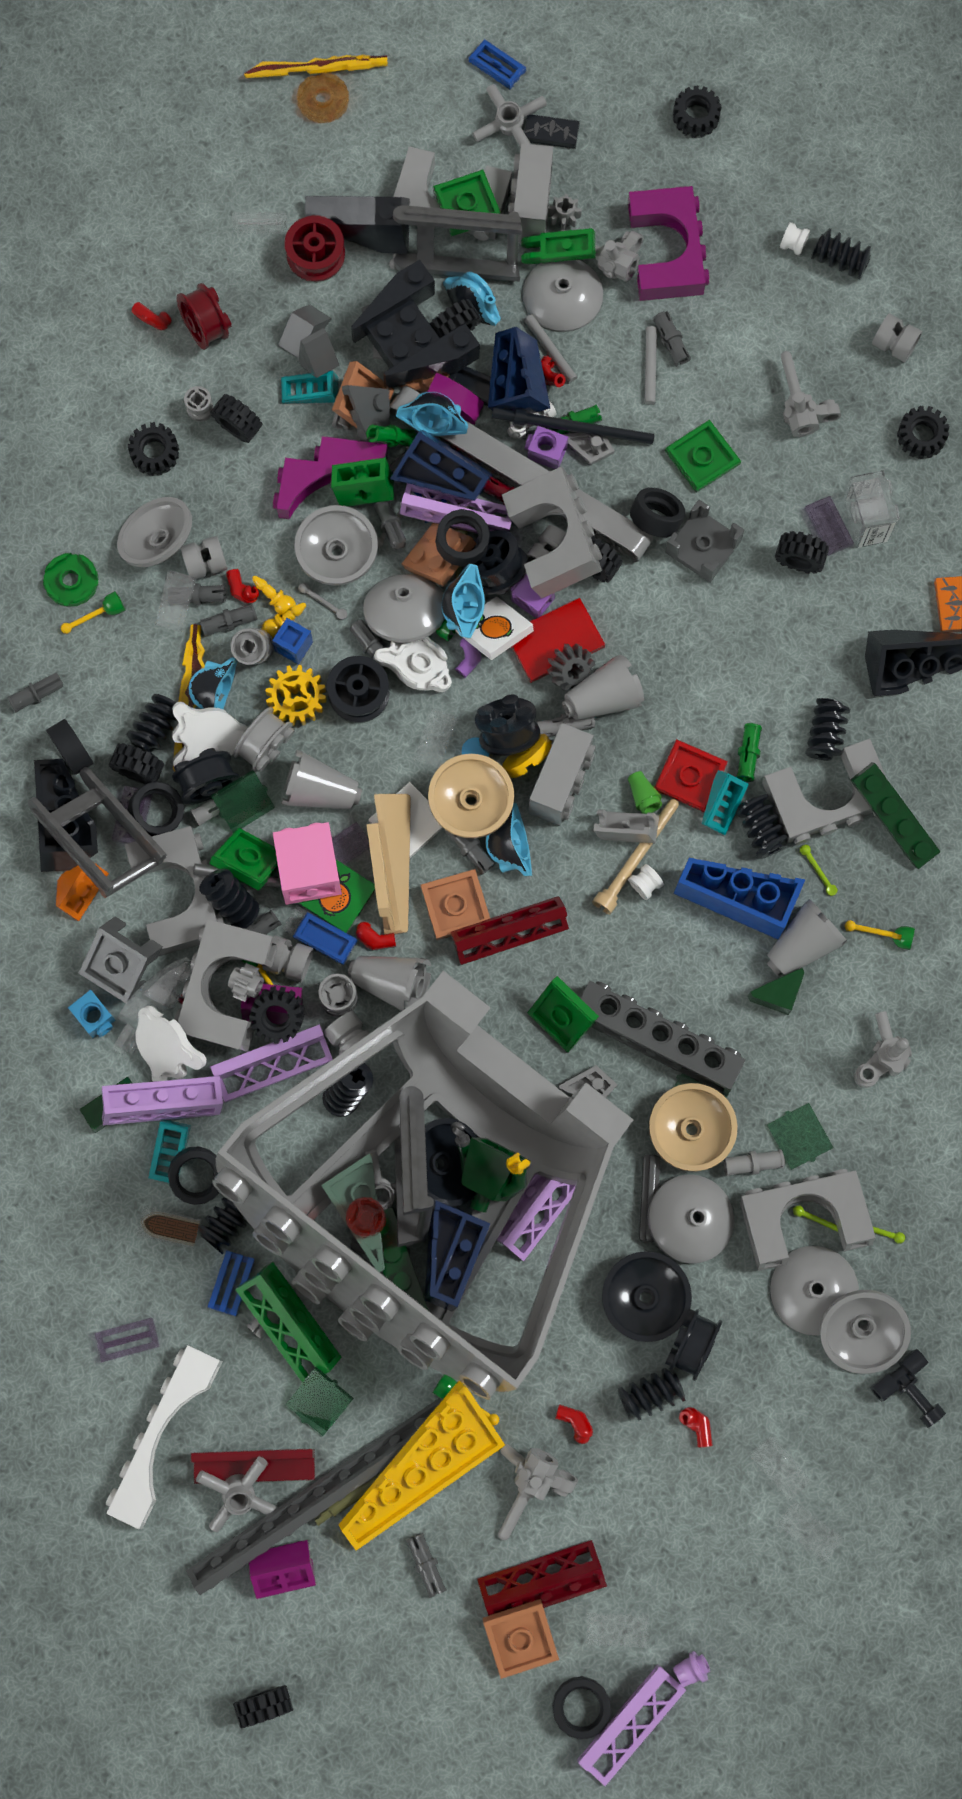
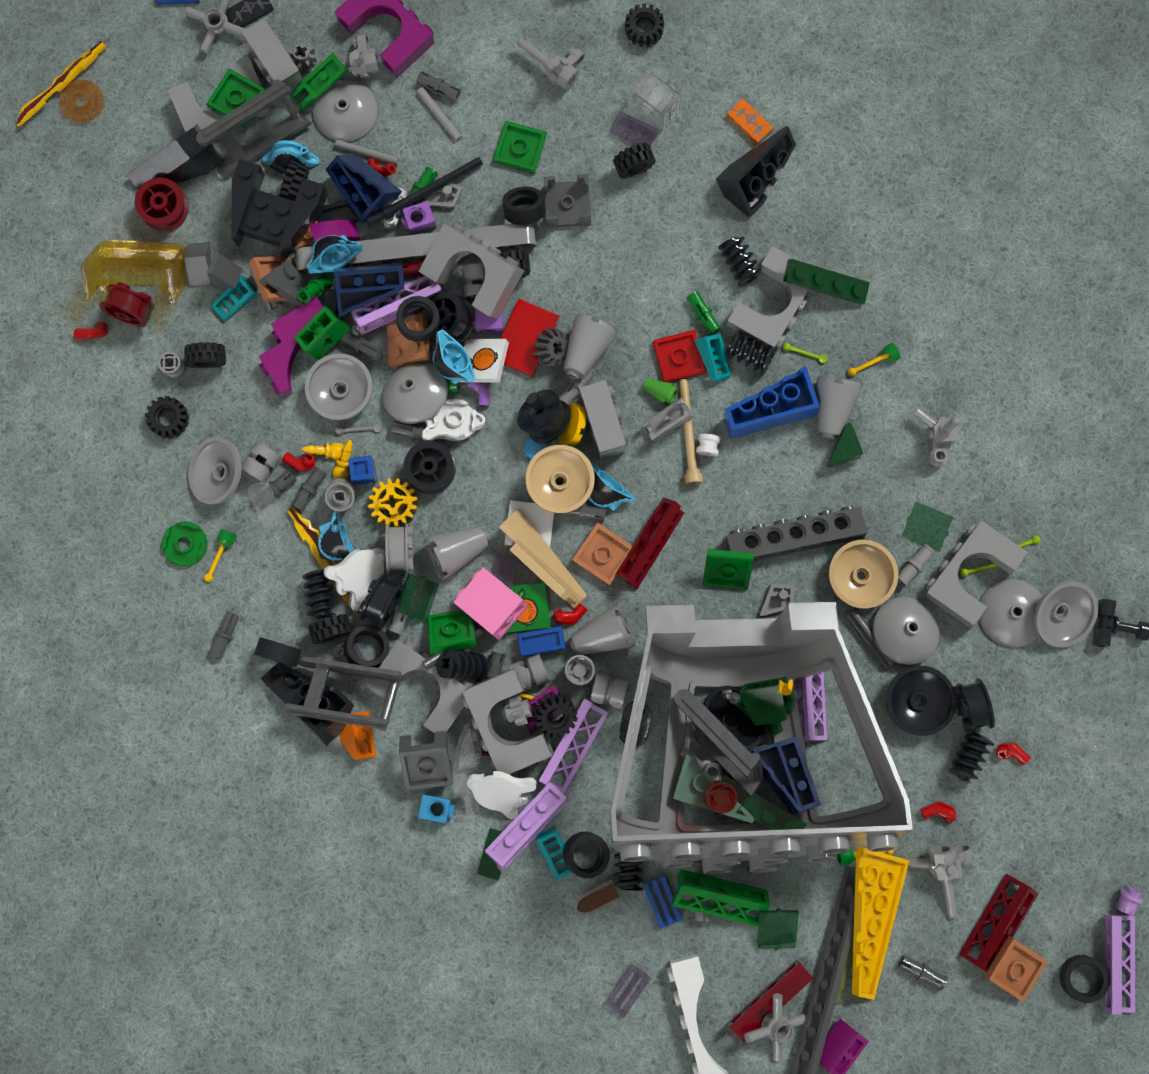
camera: 35 degrees left, 5 degrees up
(242, 284) = (135, 265): none -> clear yellow windscreen

